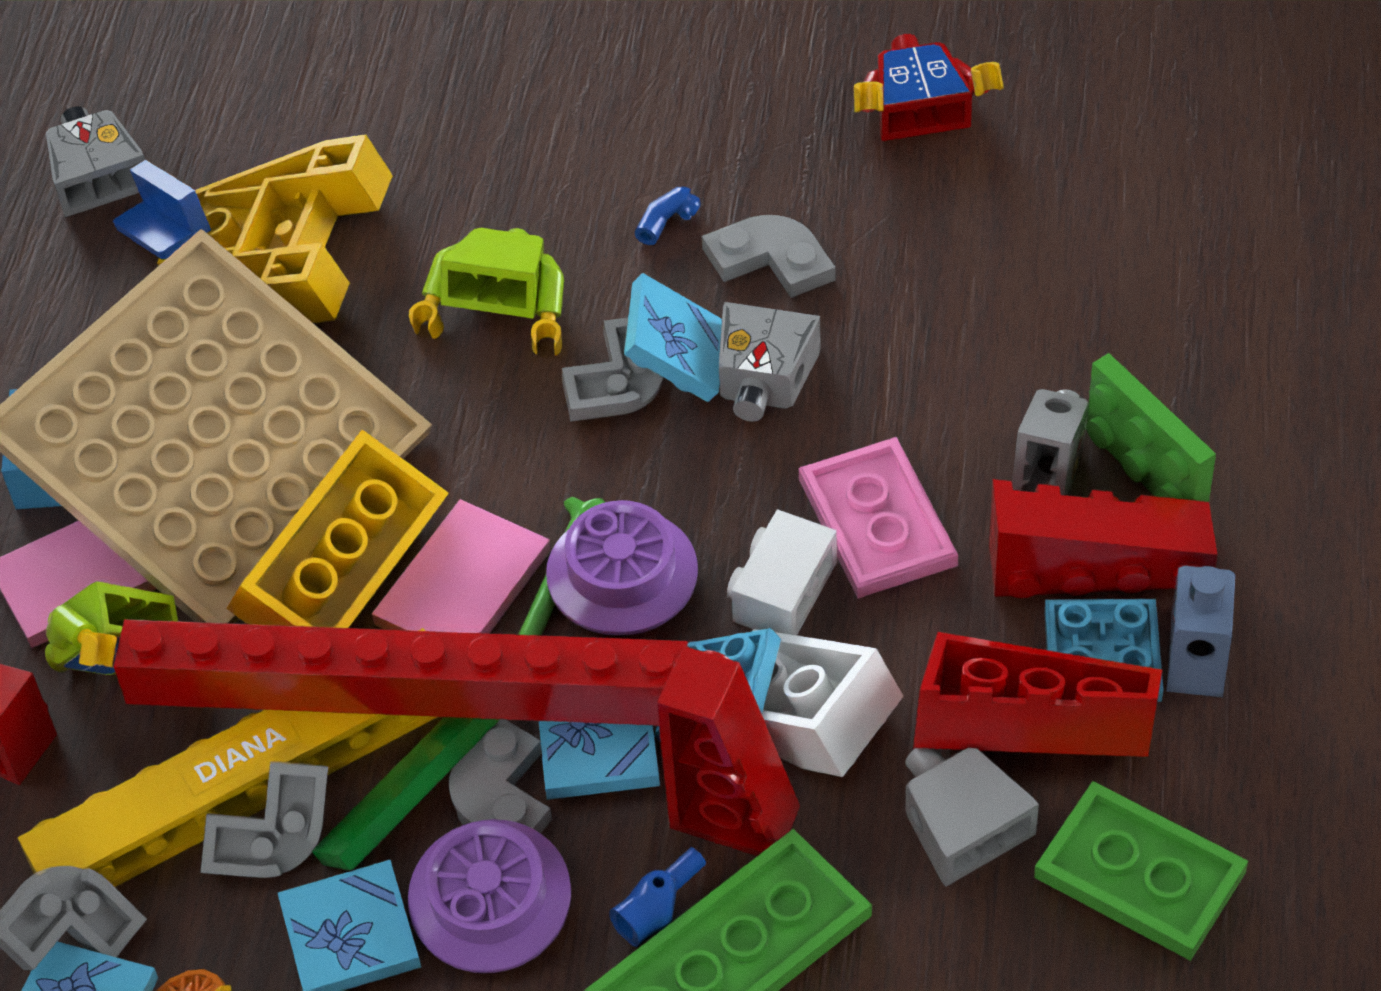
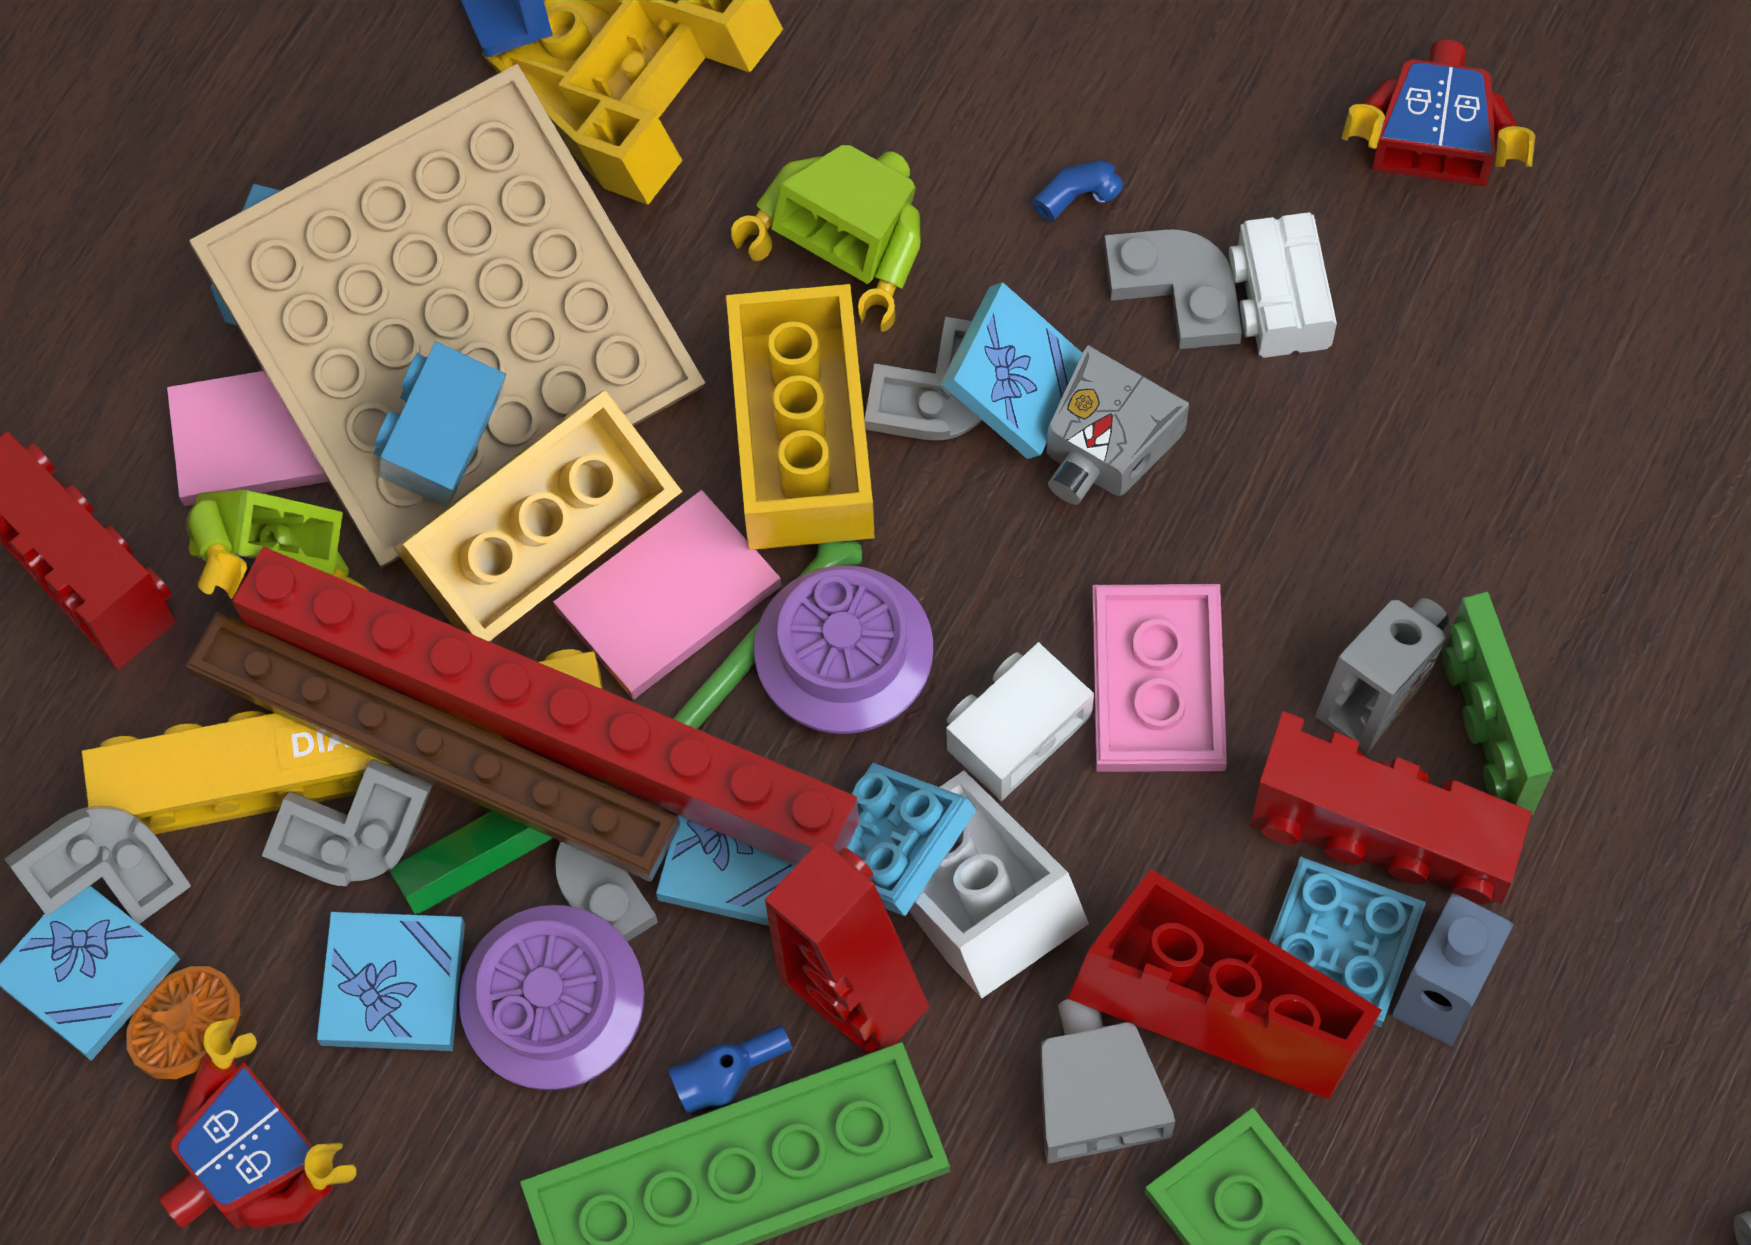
camera: 20 degrees right, 15 degrees up
(233, 495) = (441, 423): none -> dark azure brick
(317, 734) = (434, 746): none -> reddish brown tile
(521, 419) = (800, 417): none -> yellow brick
(854, 226) = (1284, 285): none -> white brick

